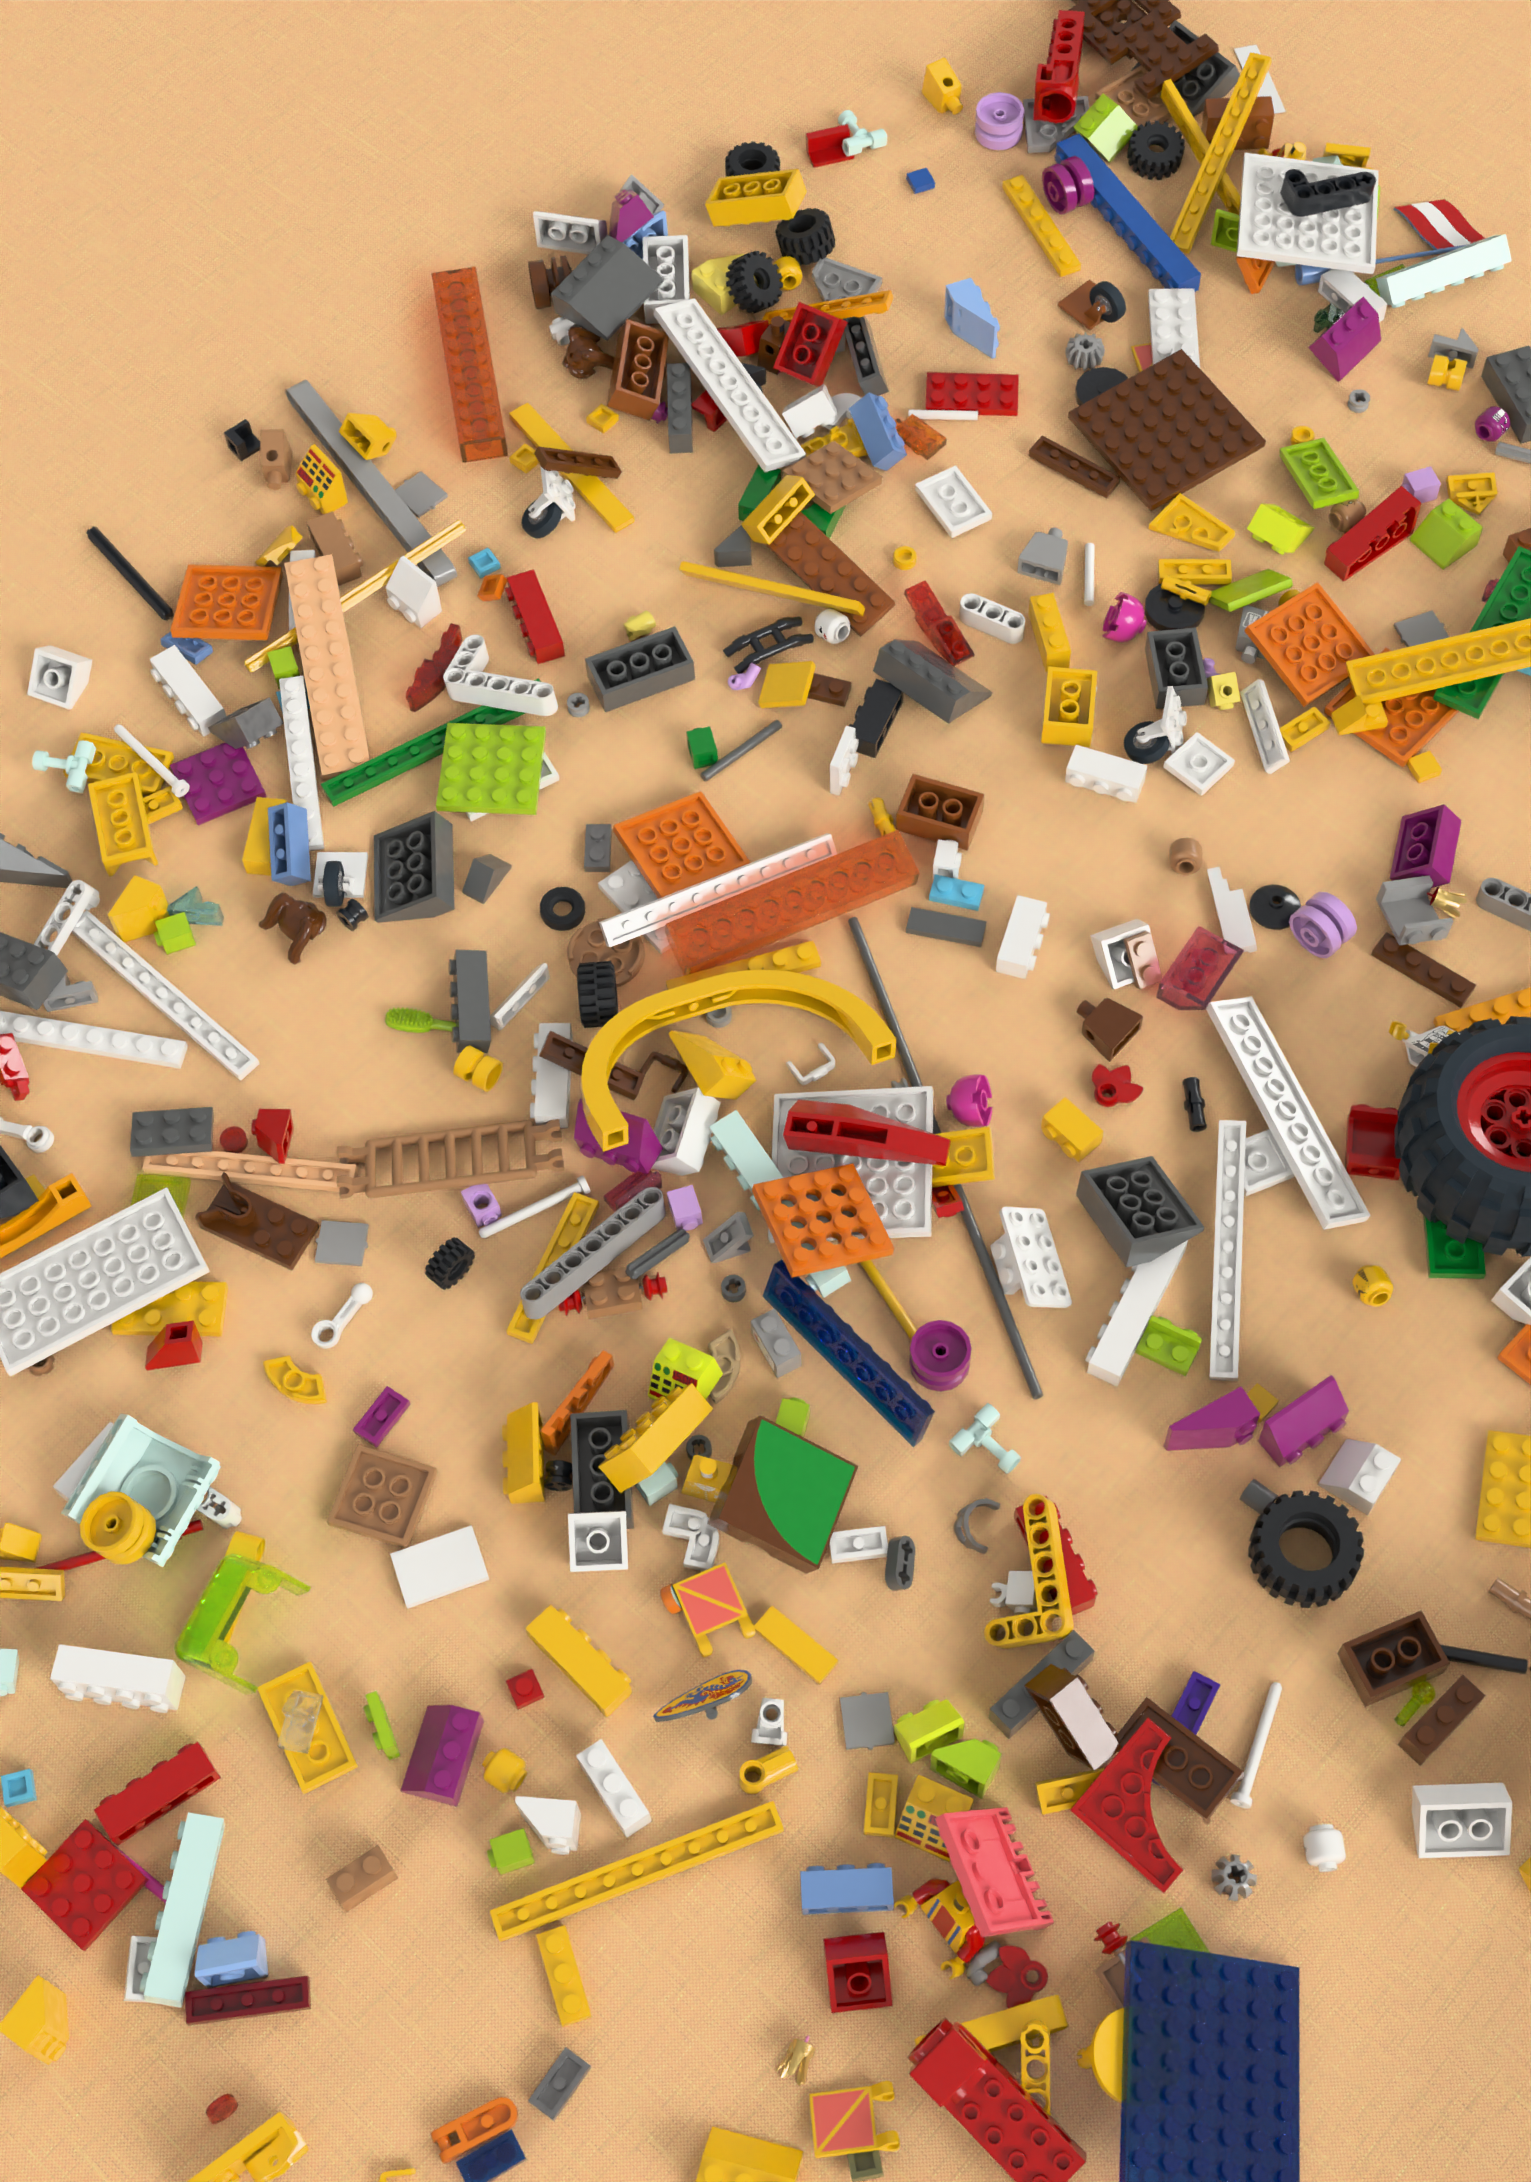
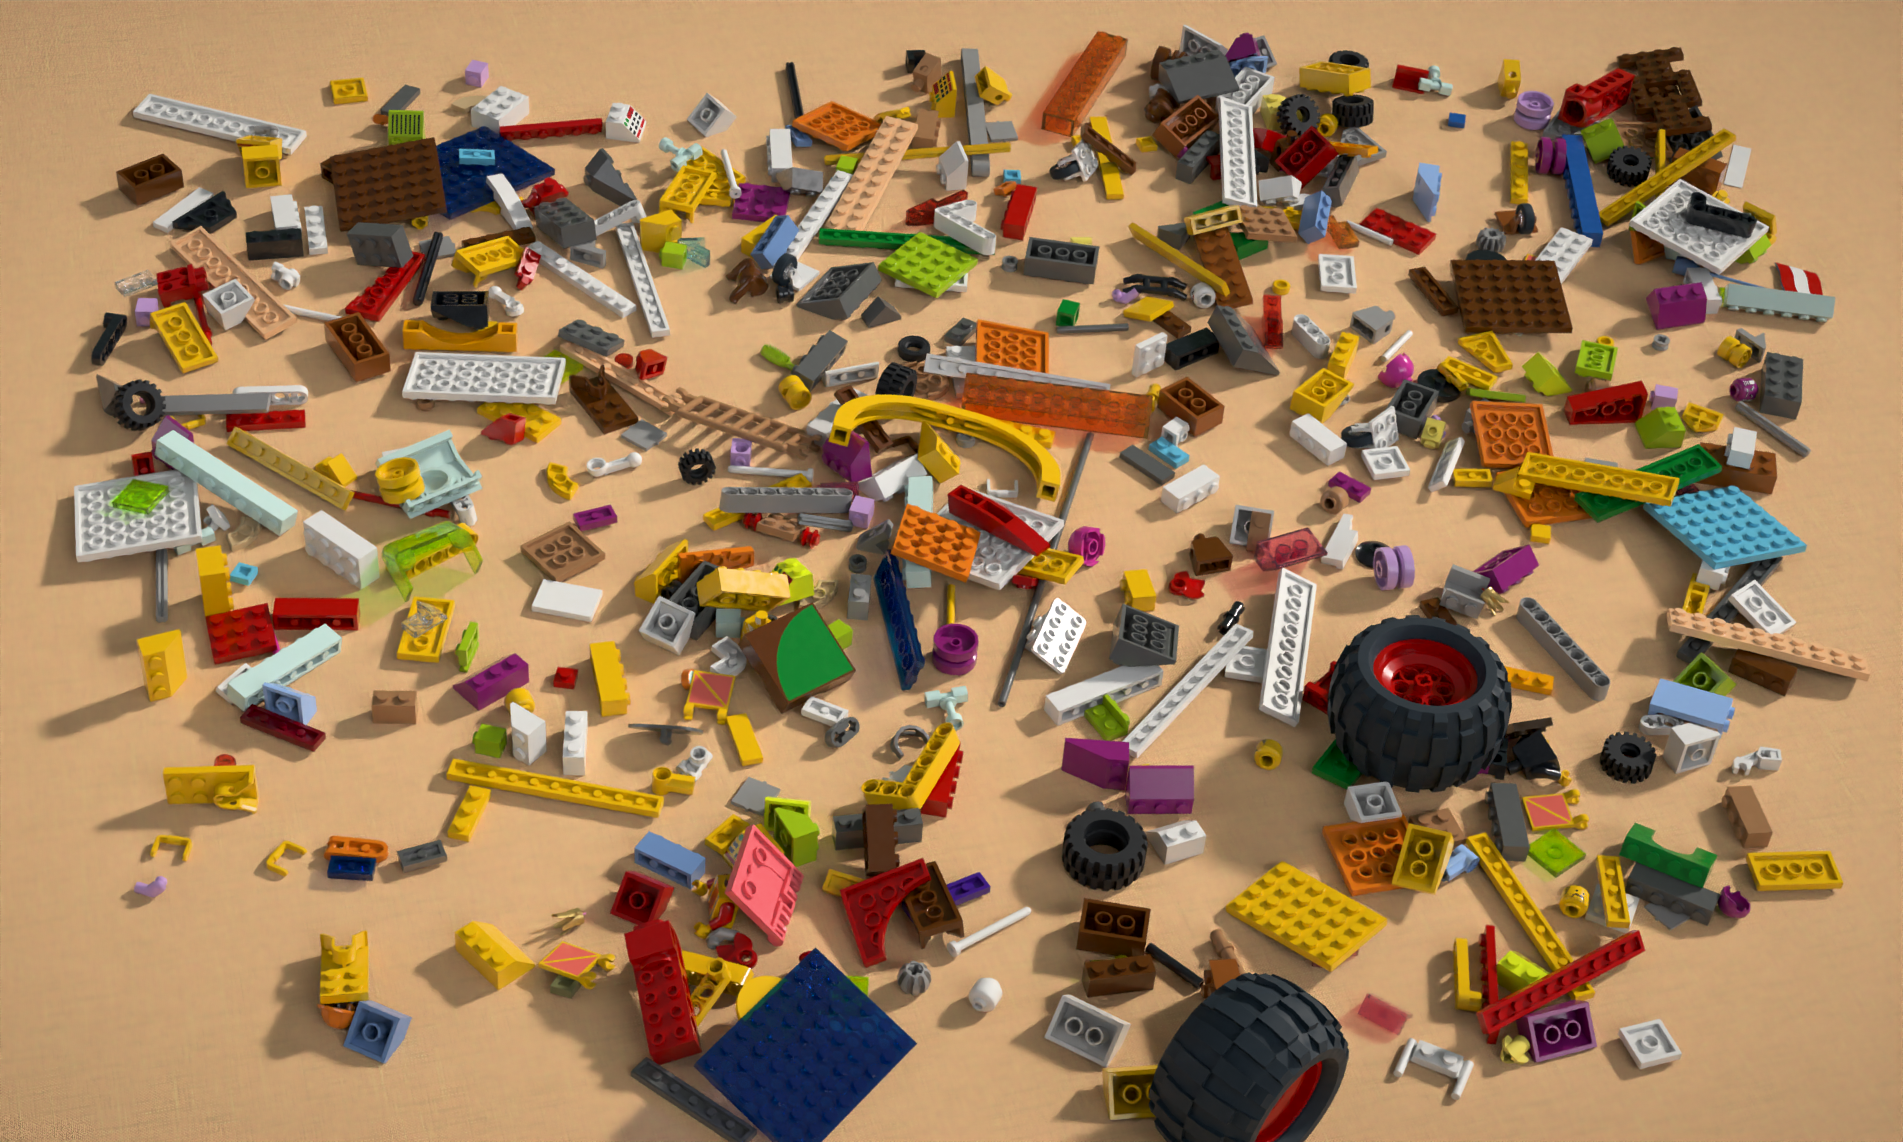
camera: 25 degrees right, 20 degrees down
(1183, 822) = (1354, 488): none -> magenta plate

